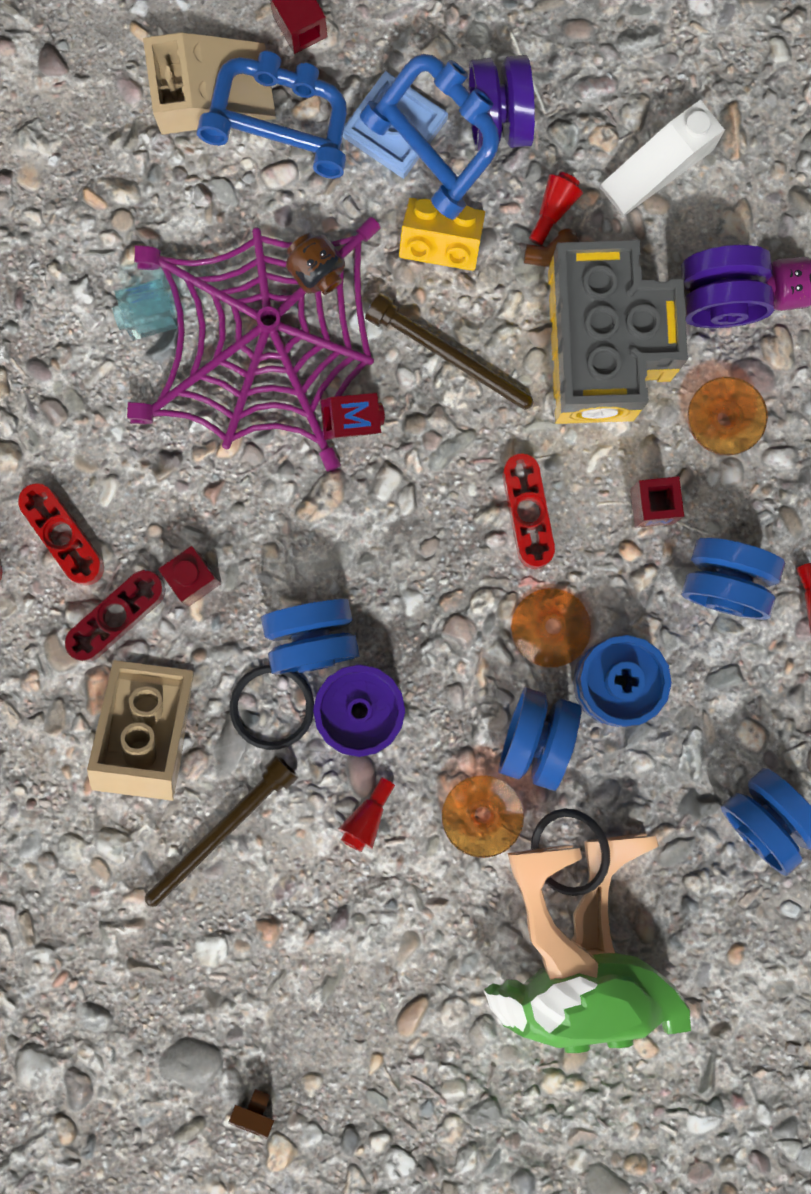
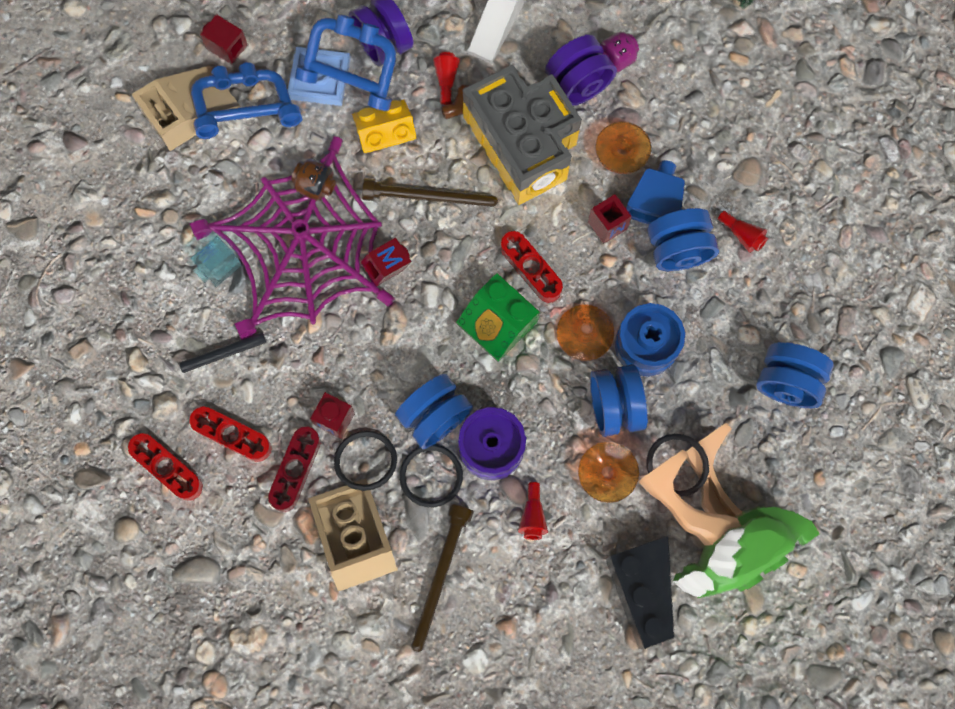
camera: 25 degrees left, 10 degrees down
(101, 428) = (222, 352): none -> black bar
(207, 685) = (379, 483): none -> black tyre
(448, 979) = (645, 590): none -> black wedge
(451, 556) = (498, 317): none -> green slope
(736, 501) = (657, 194): none -> blue torso

